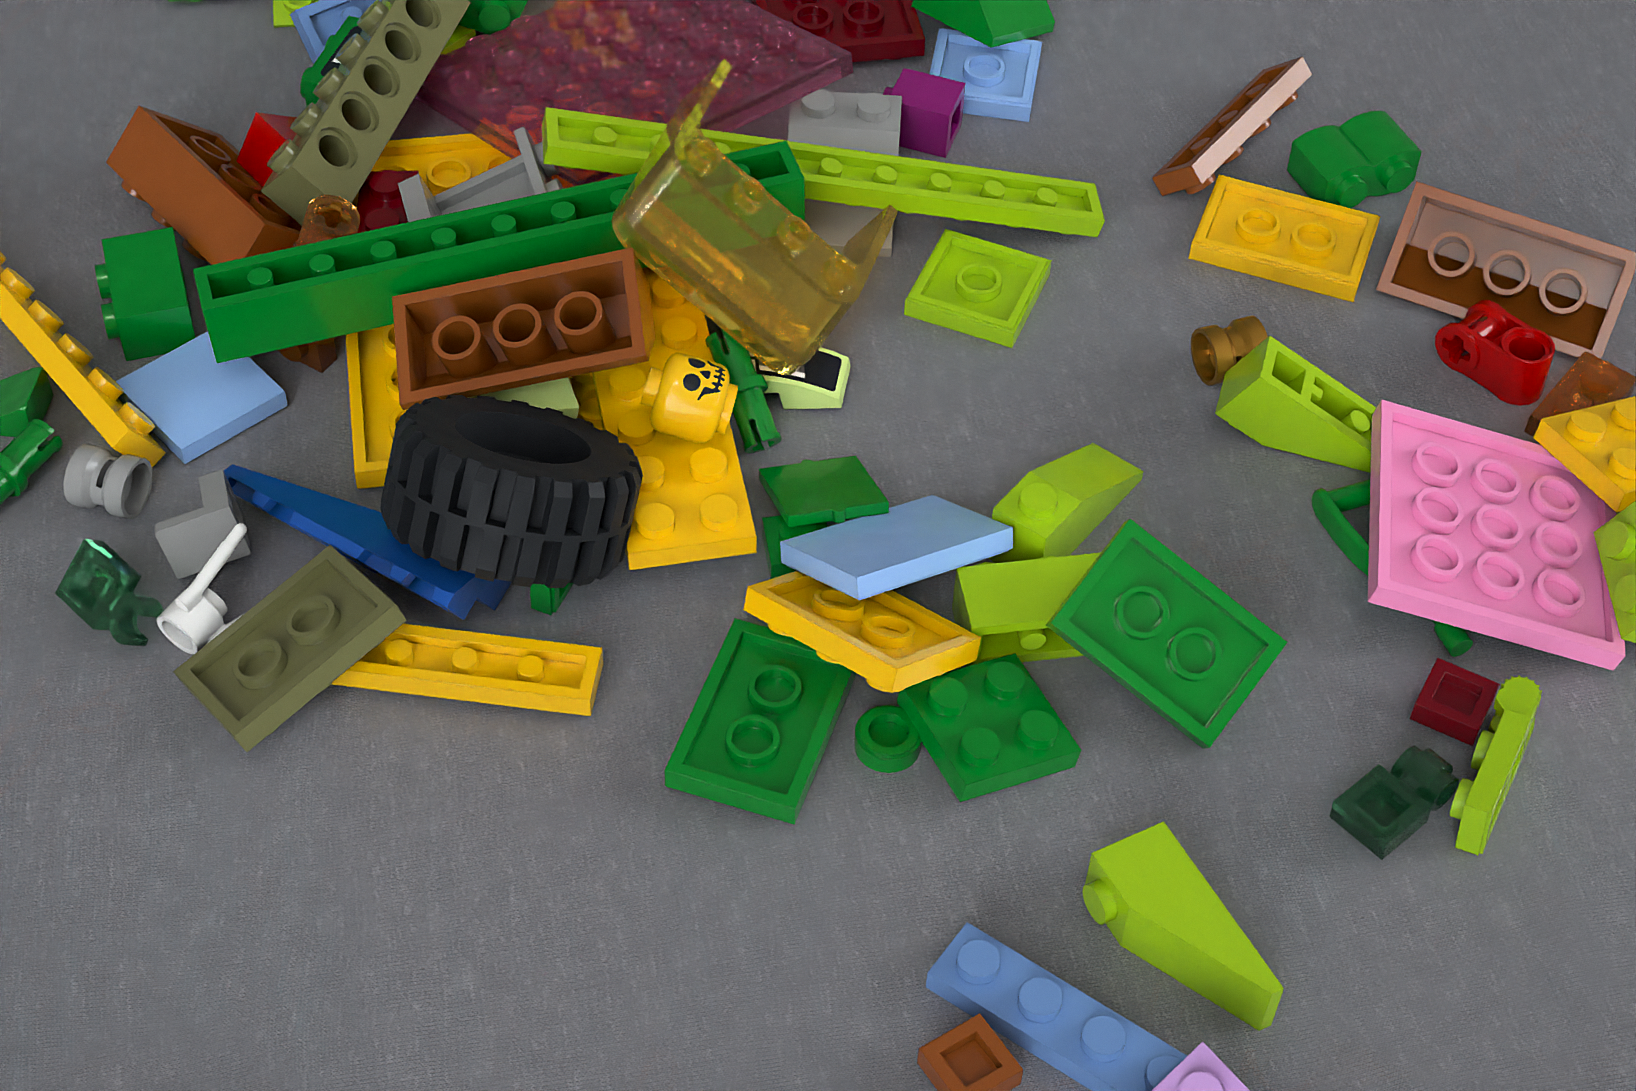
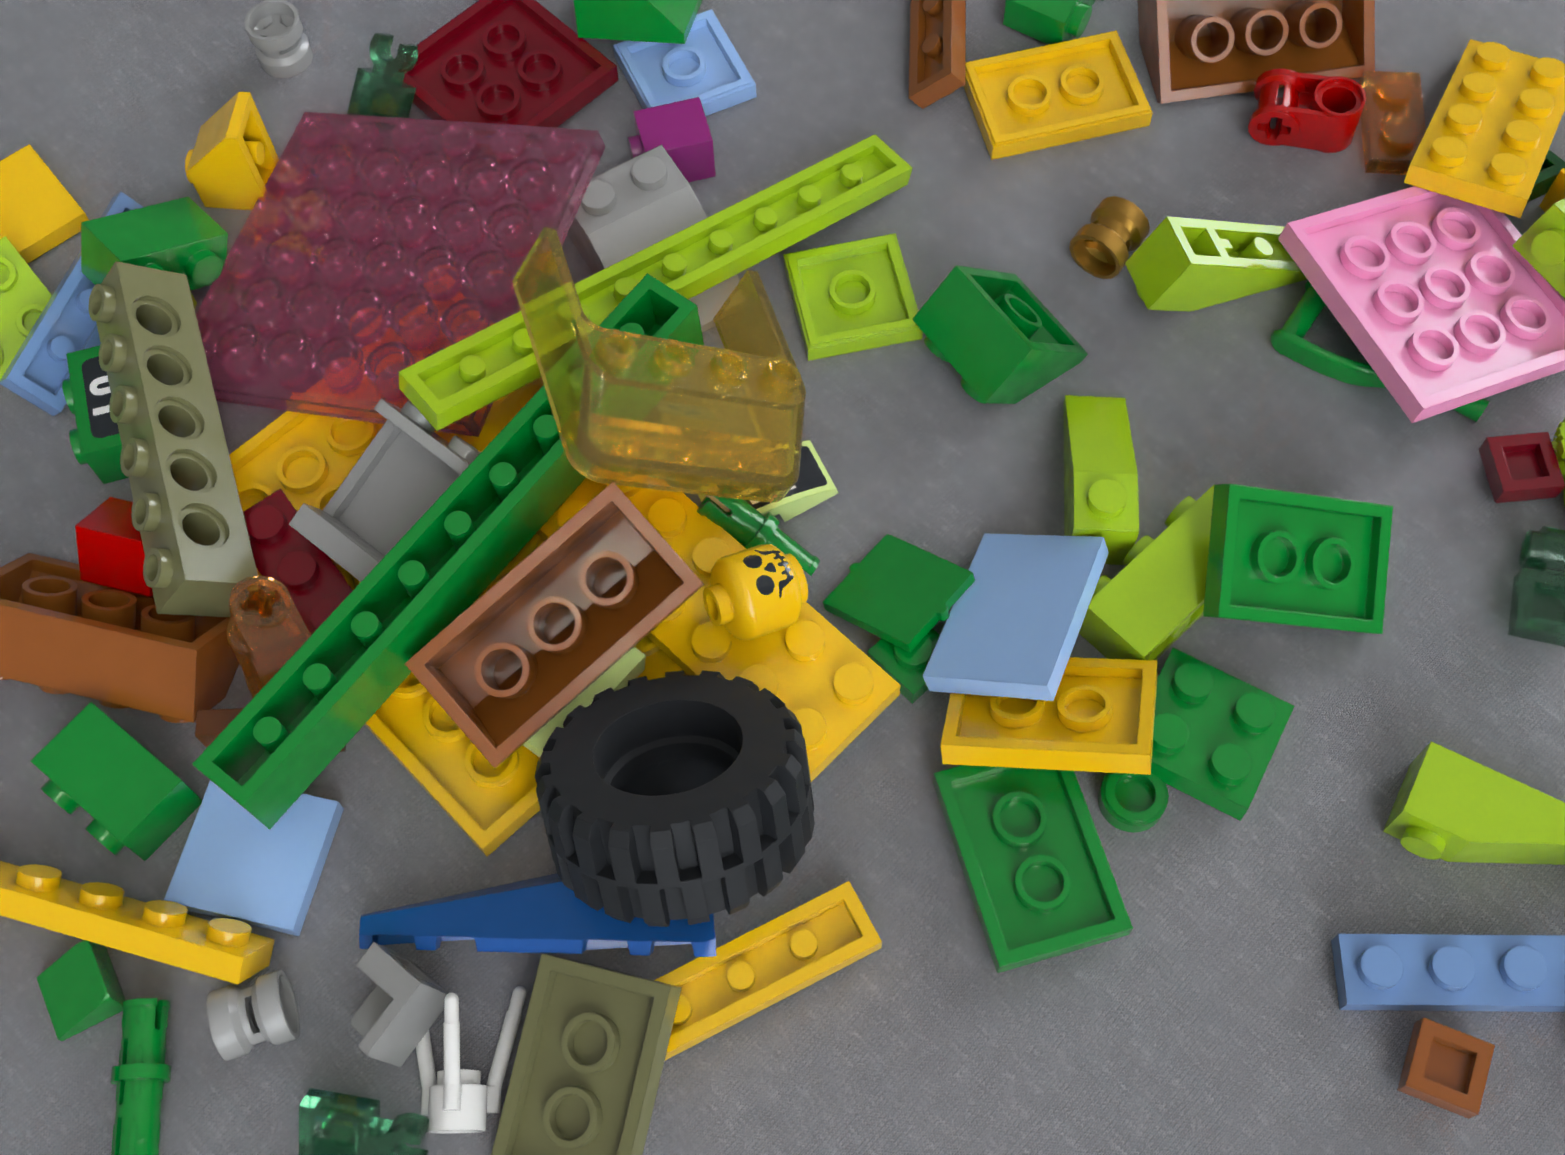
camera: 30 degrees left, 15 degrees up
(1069, 366) = (996, 335): none -> green slope

